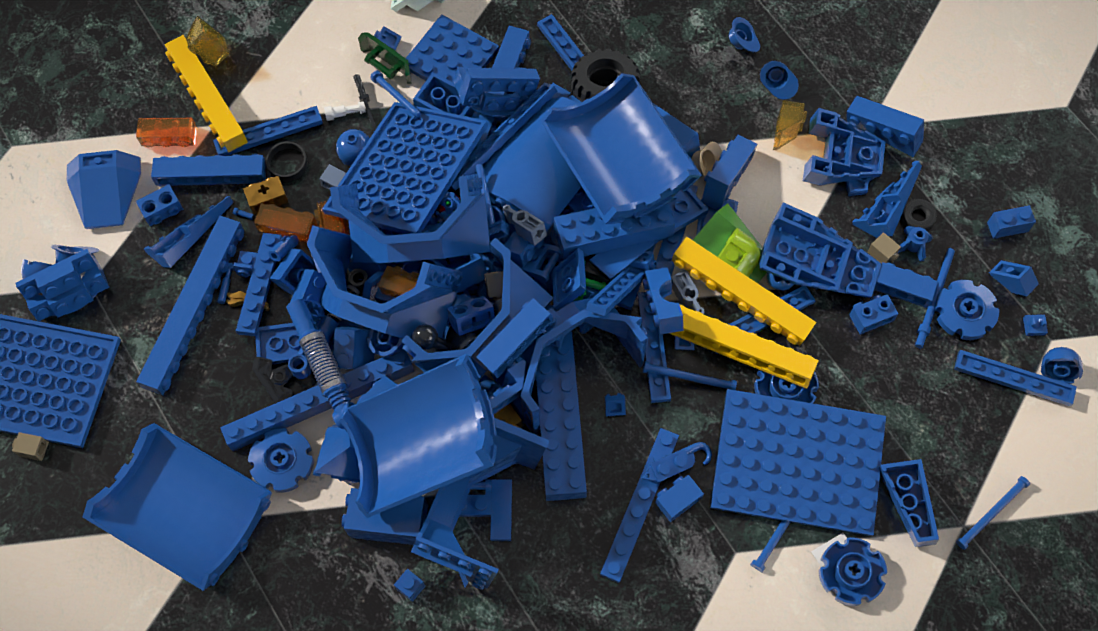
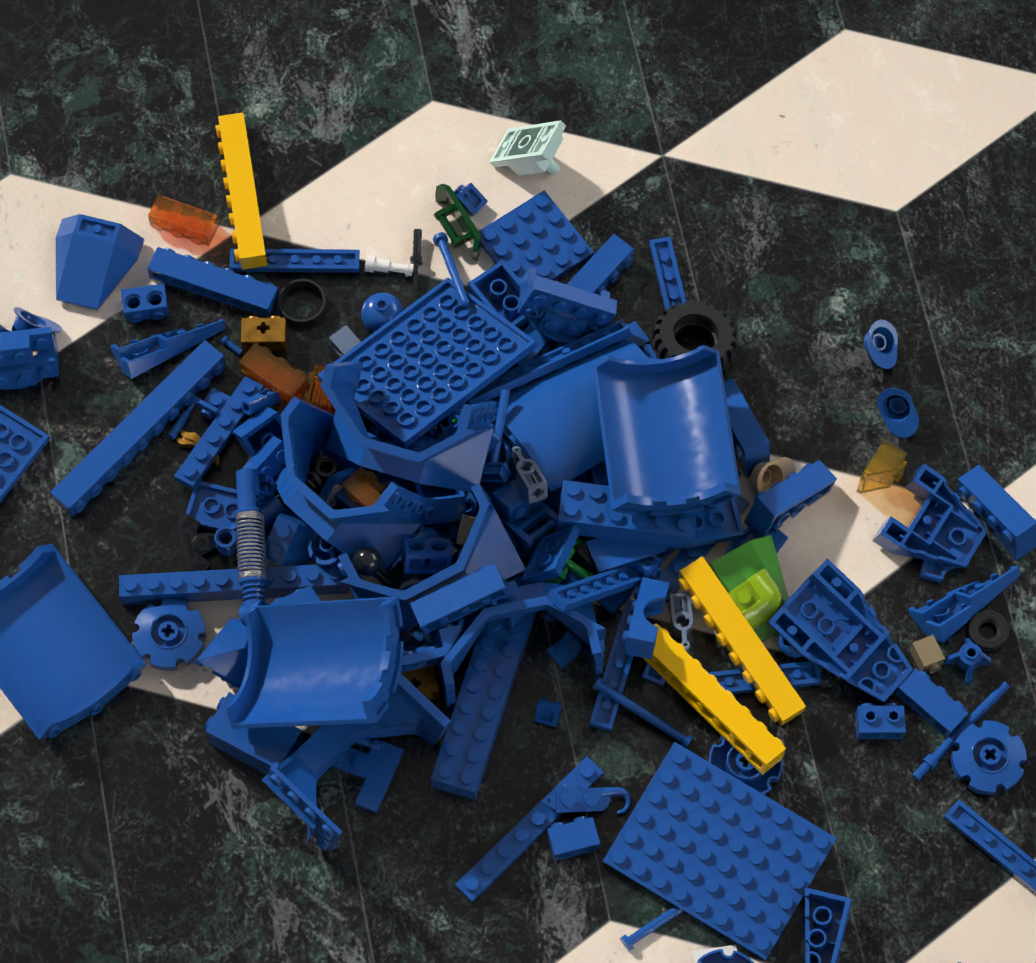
camera: 20 degrees right, 0 degrees up
(207, 42) = (266, 131): clear yellow slope -> none
(409, 585) = (251, 817): blue brick -> none
(607, 350) = (565, 649): none -> blue bracket

